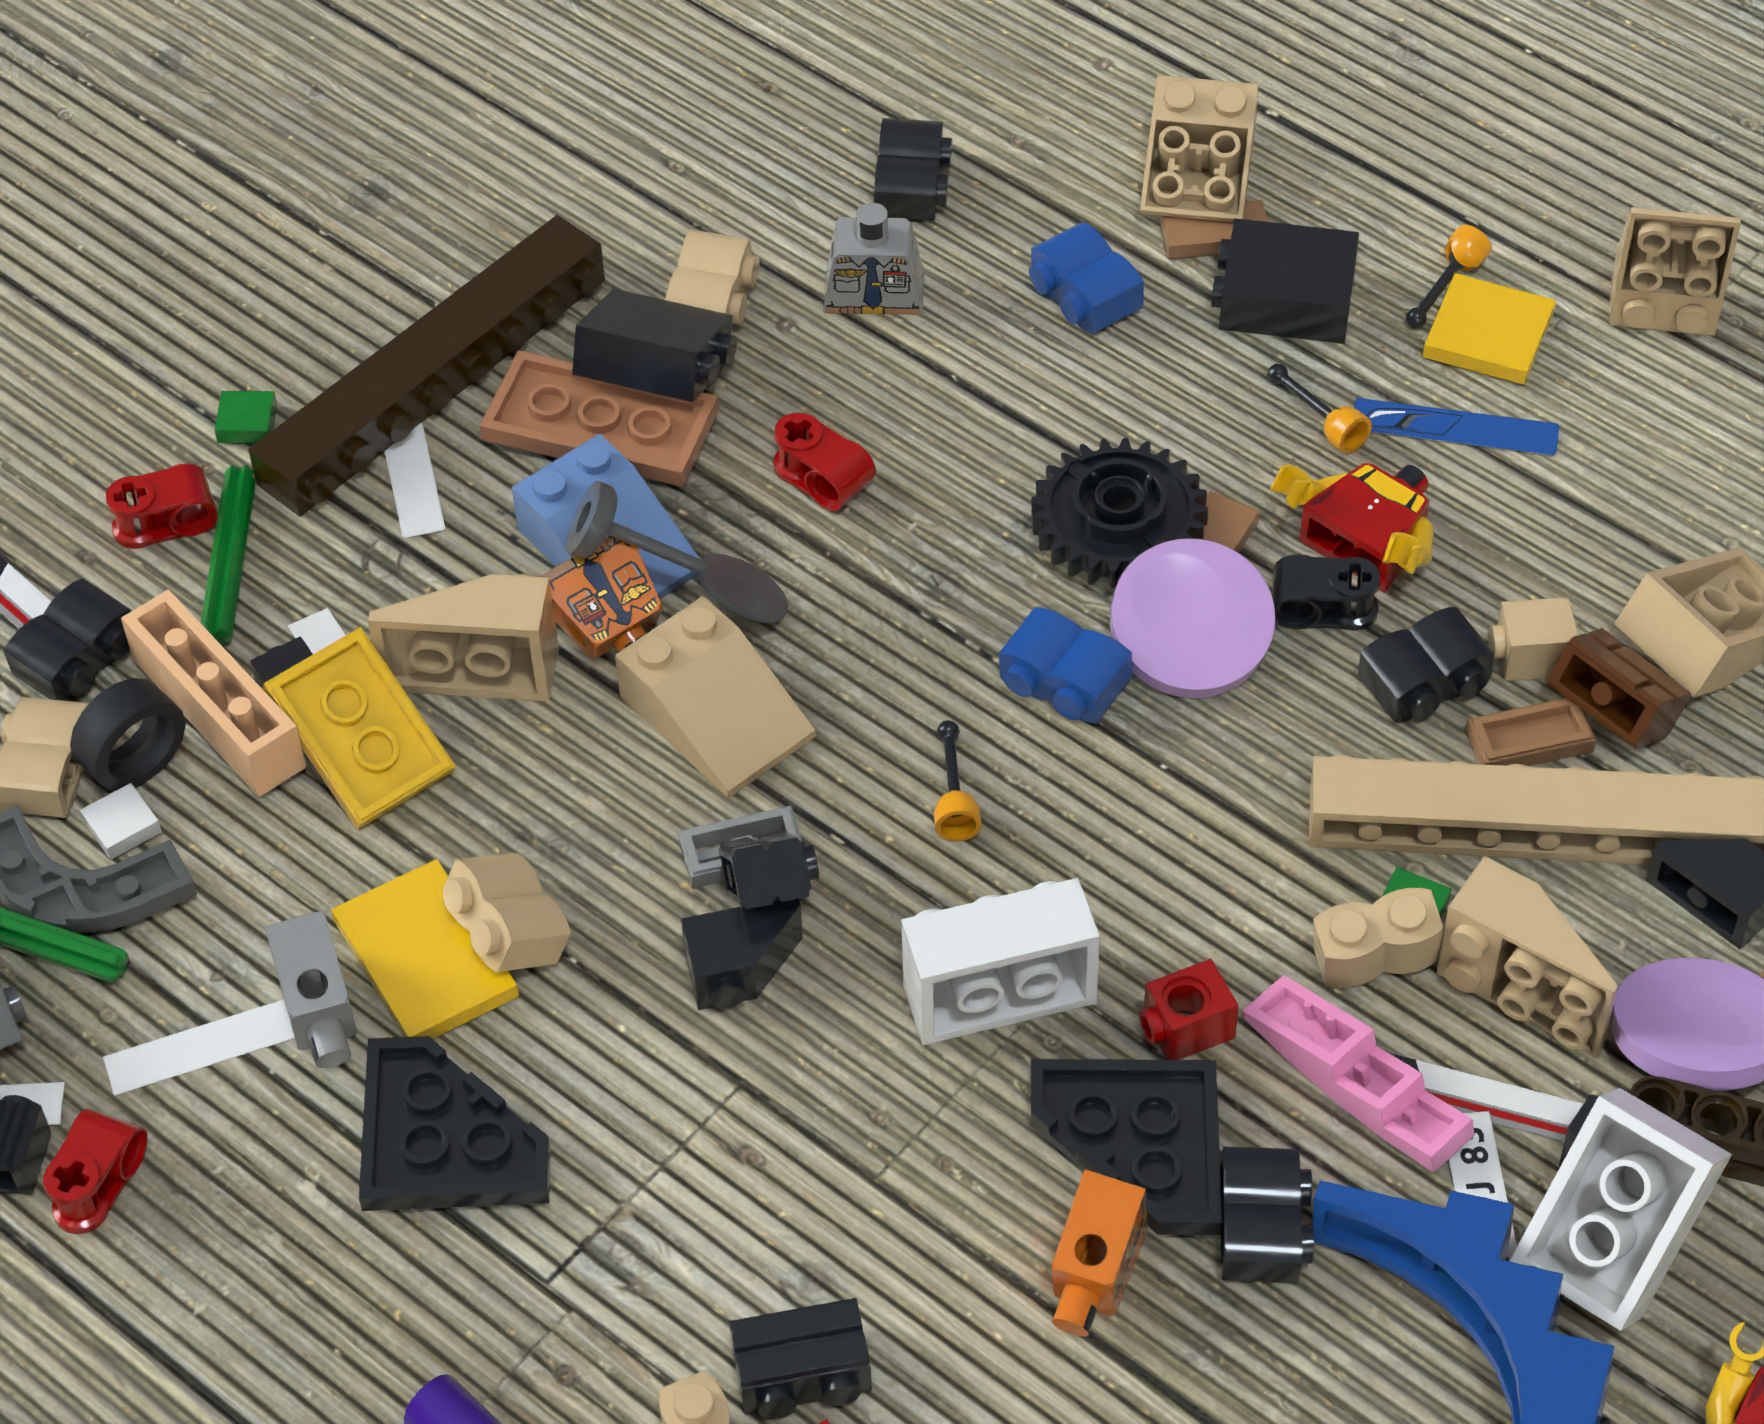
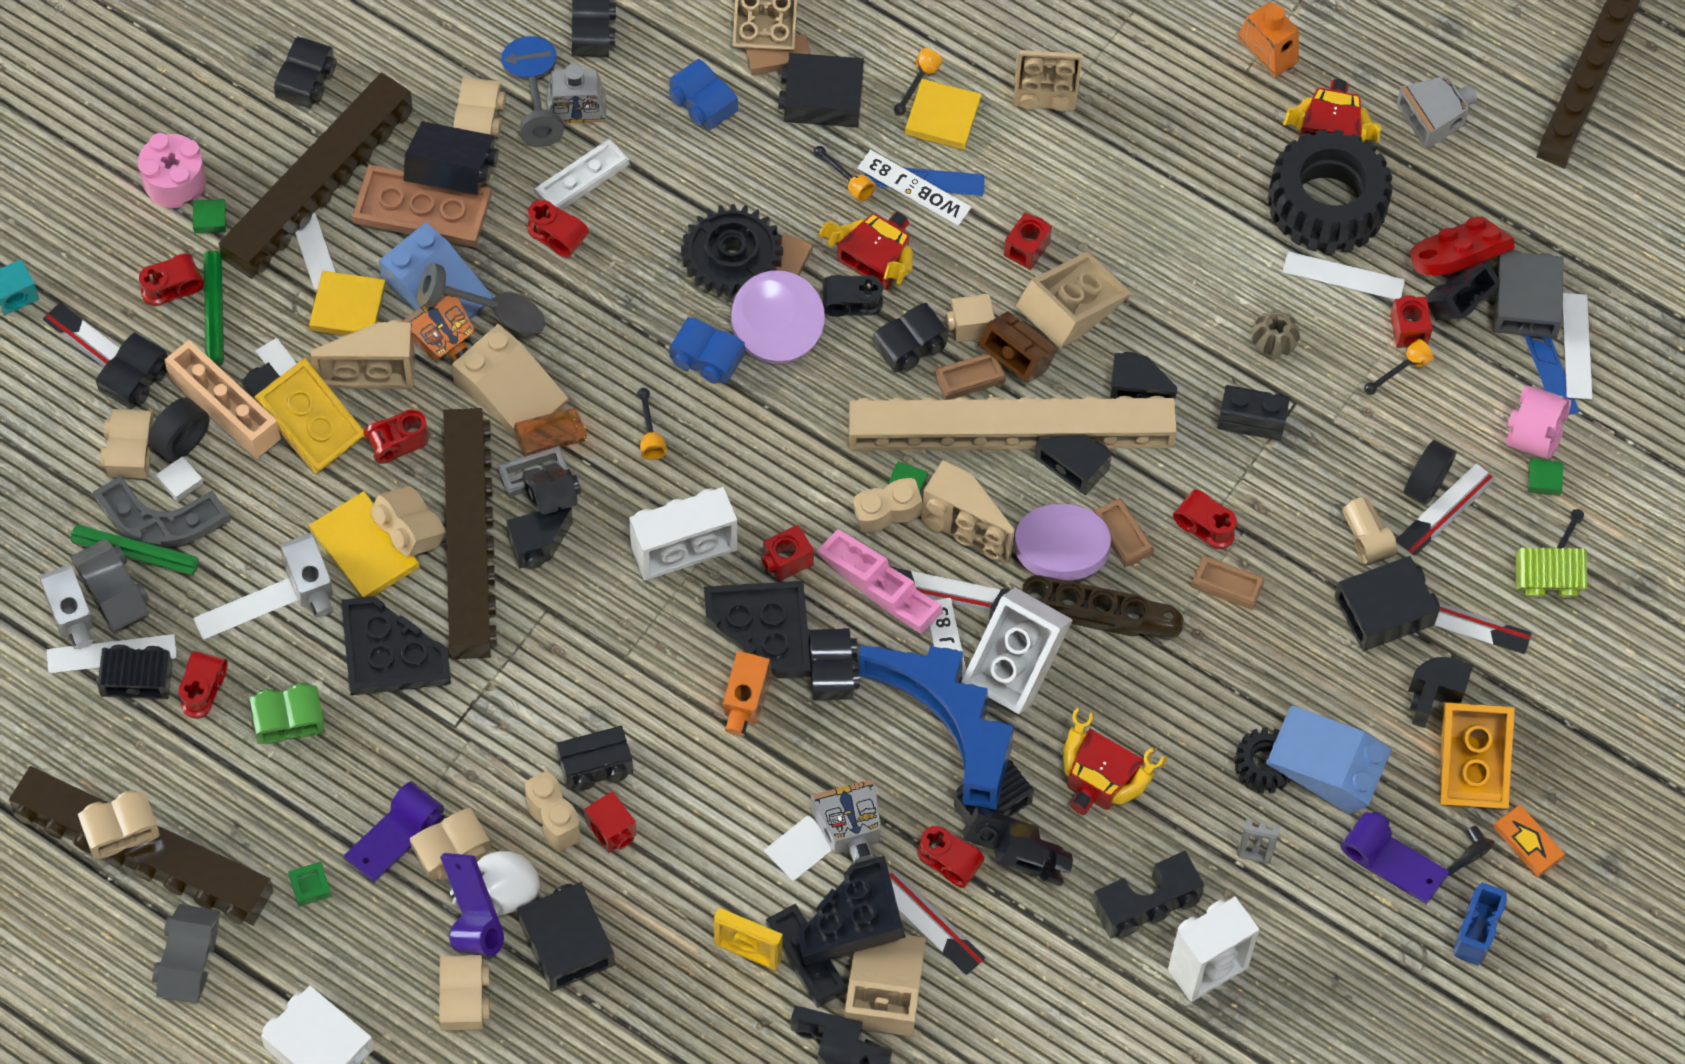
camera: 10 degrees left, 10 degrees up
(193, 341) = (172, 170): none -> bright pink brick
(238, 1235) = (287, 713): none -> bright green brick
(434, 215) = (304, 72): none -> black brick
(448, 551) = (346, 303): none -> yellow tile
(512, 770) = (395, 435): none -> red piece
(610, 948) = (468, 534): none -> dark brown brick
(777, 780) = (550, 431): none -> clear orange tile
(811, 308) = (530, 59): none -> piece
(878, 387) = (583, 175): none -> white tile
(1438, 436) = (914, 187): none -> white sticker
(1635, 523) = (1027, 251): none -> red brick

